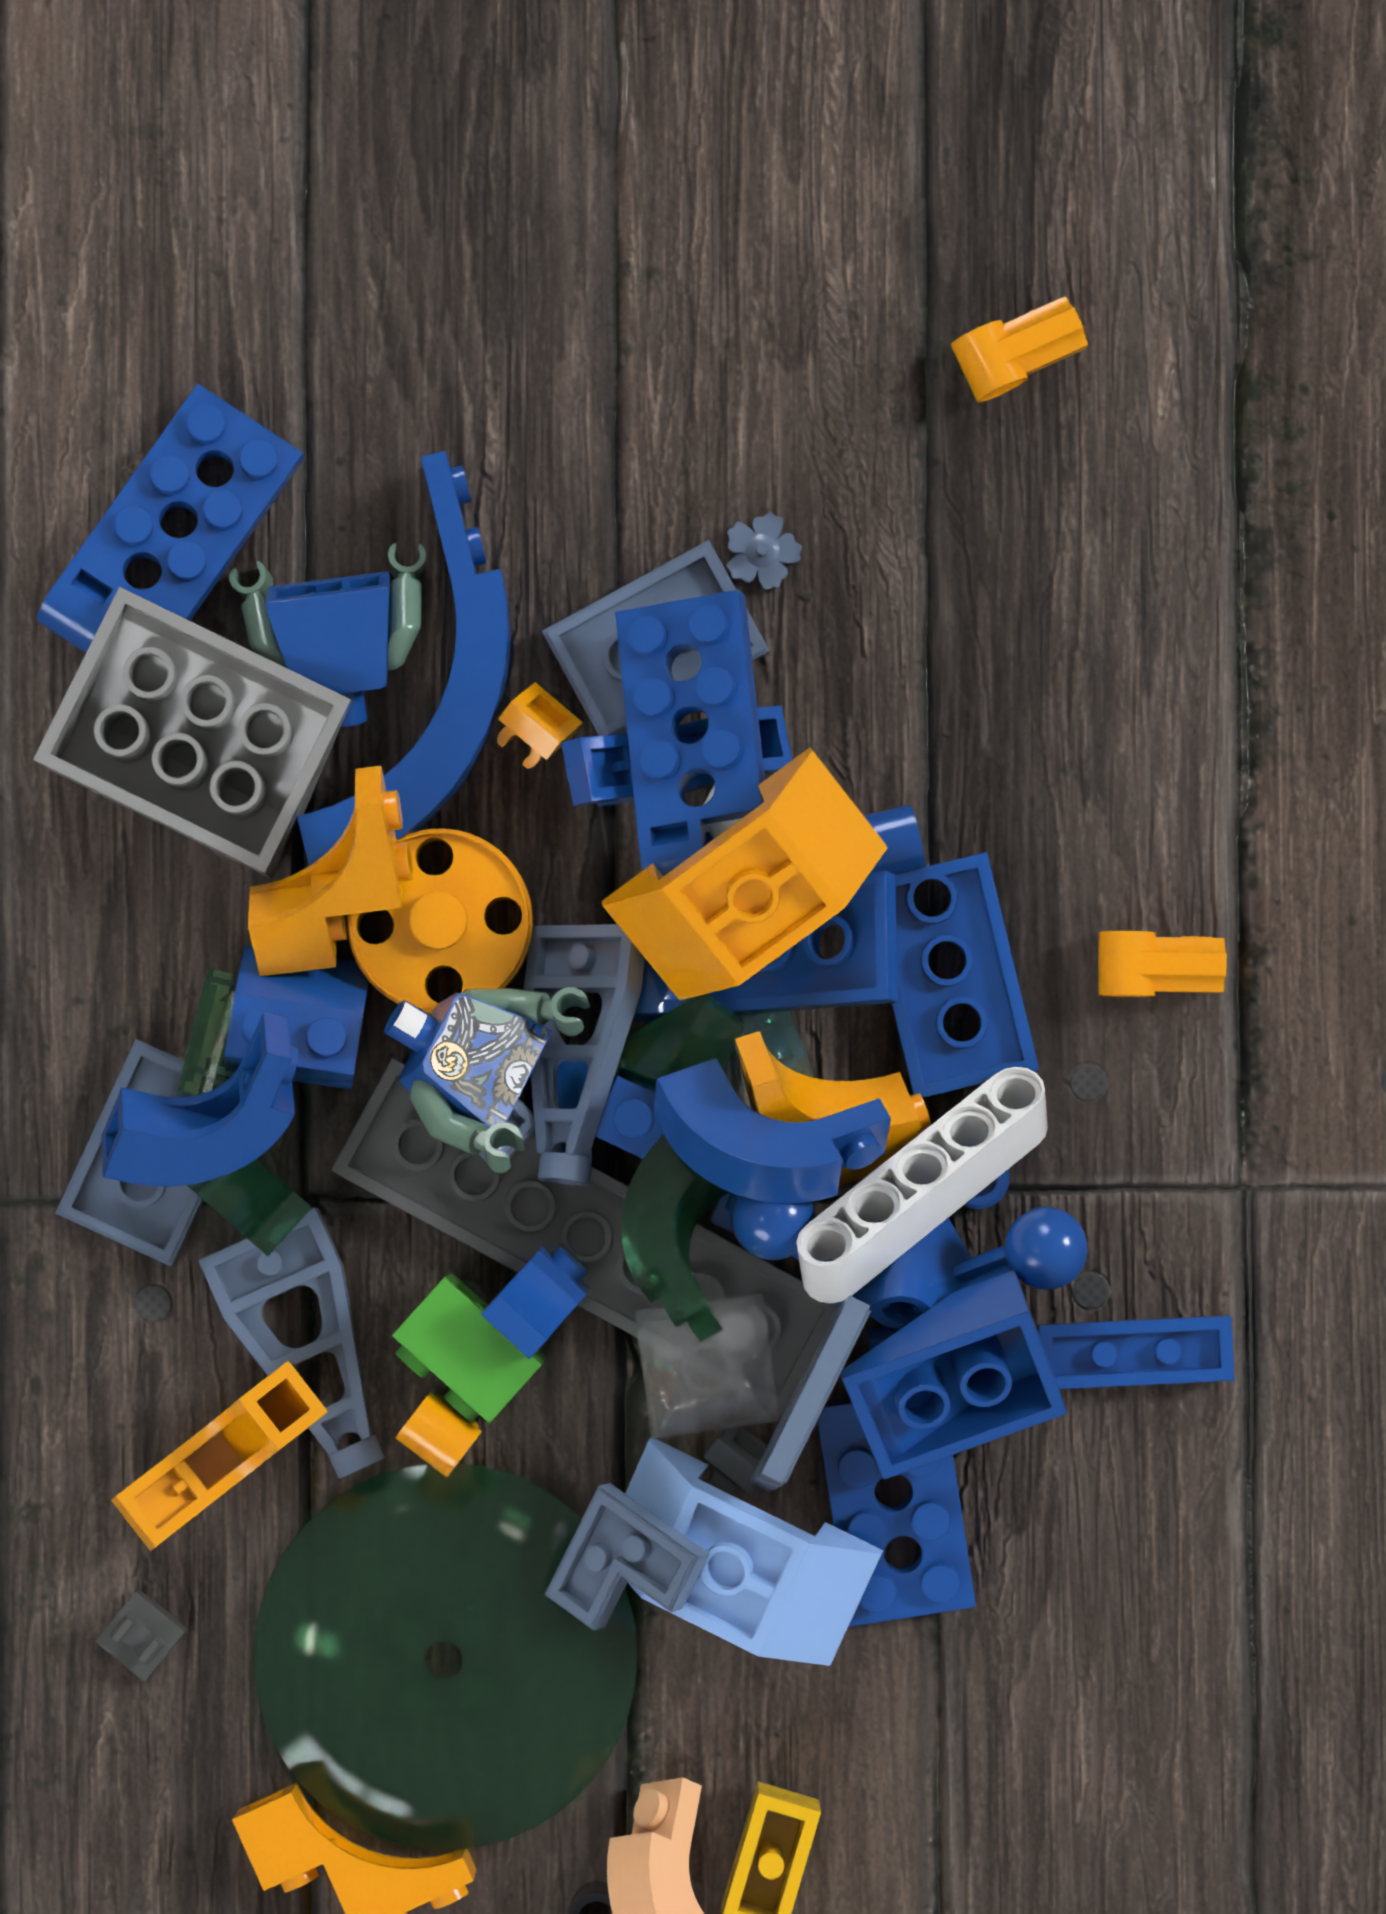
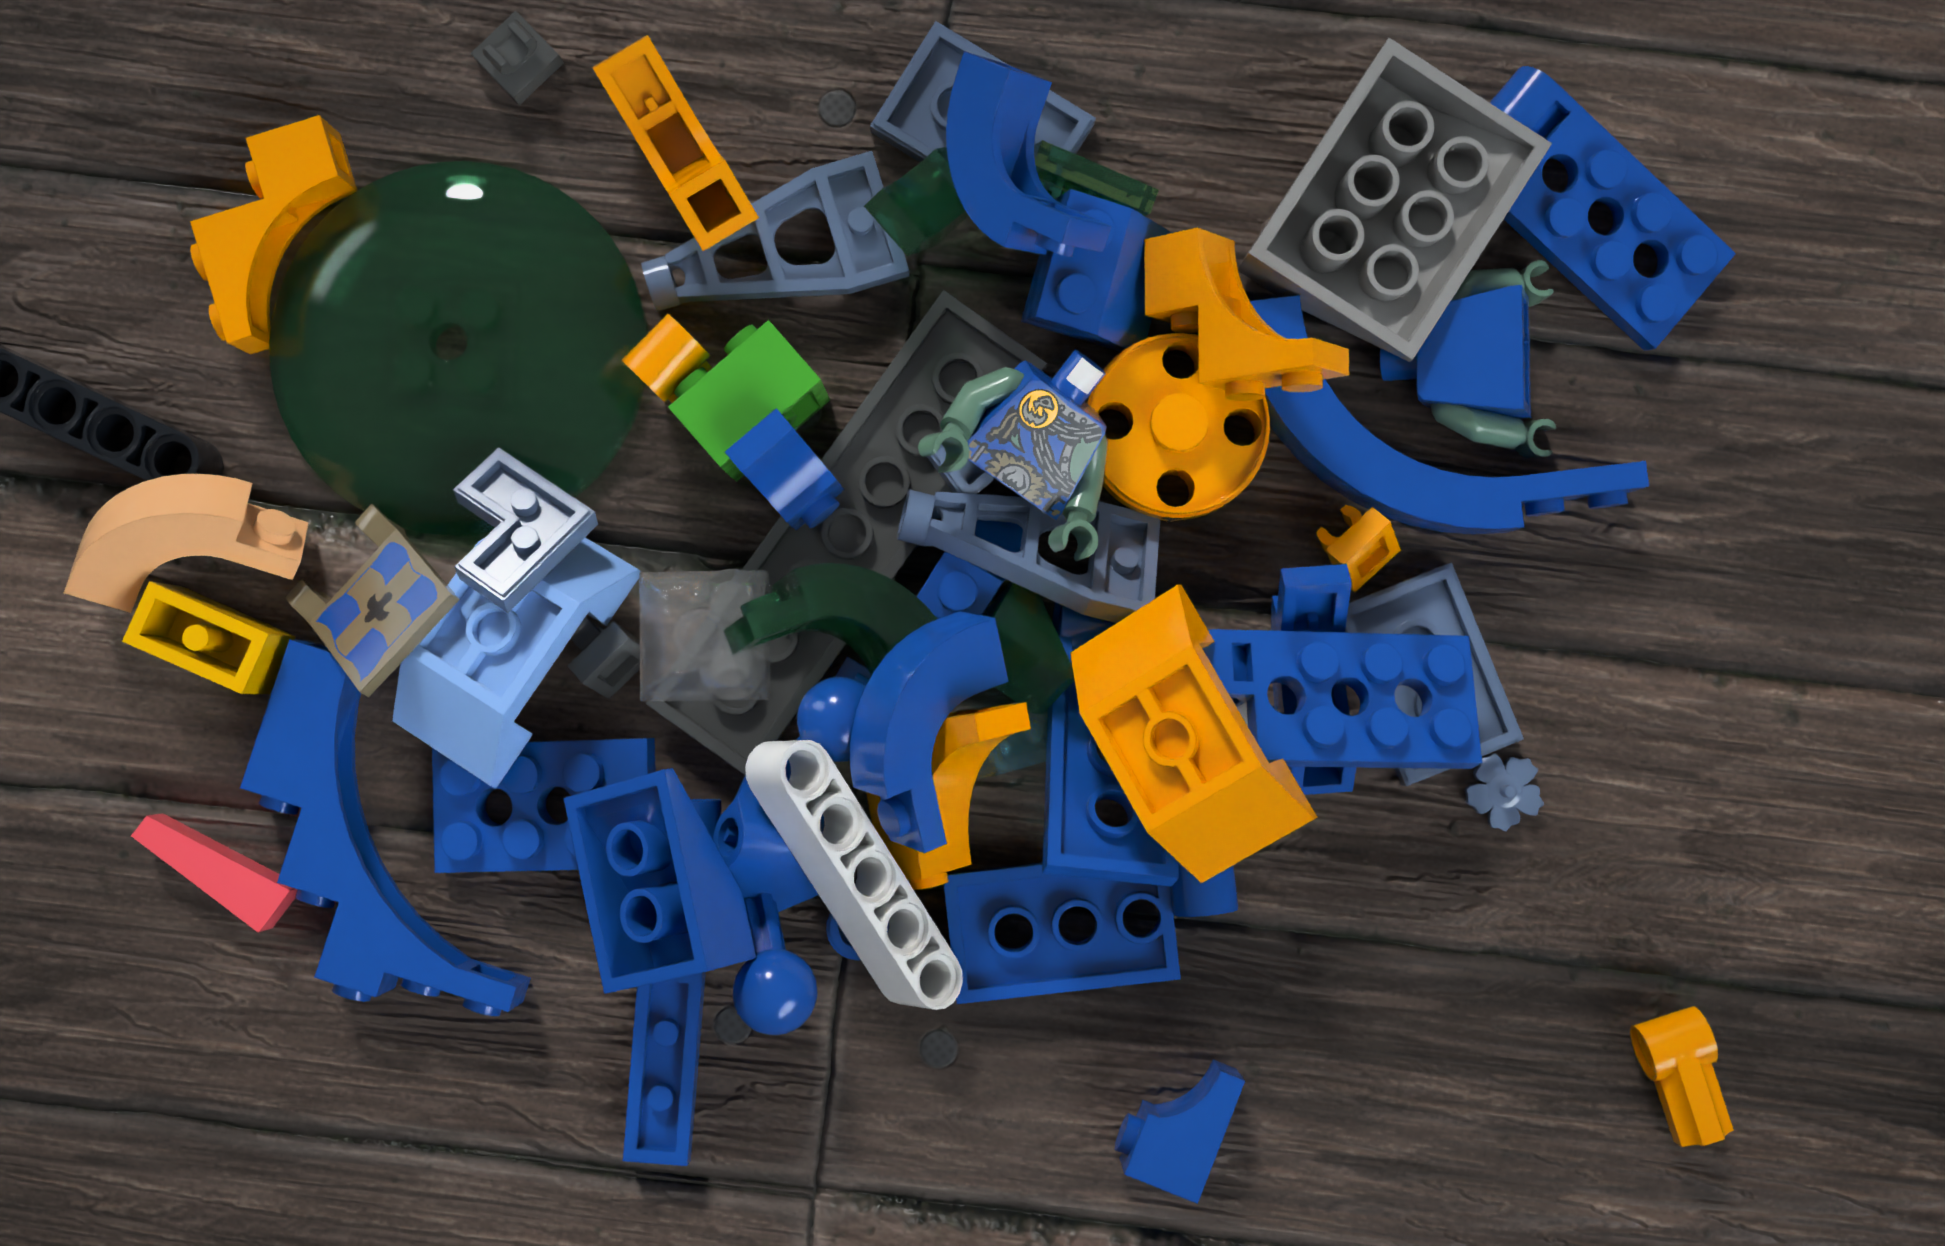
camera: 95 degrees right, 0 degrees up
(720, 1689) = (380, 608): none -> dark tan flag
(811, 1394) = (655, 736): sand blue tile -> none
(882, 1747) = (376, 935): none -> blue arch
(1007, 1811) = (222, 873): none -> coral piece
(1145, 834) = (1178, 1140): none -> blue arch
(1146, 964) = (1049, 1122): light orange piece -> none

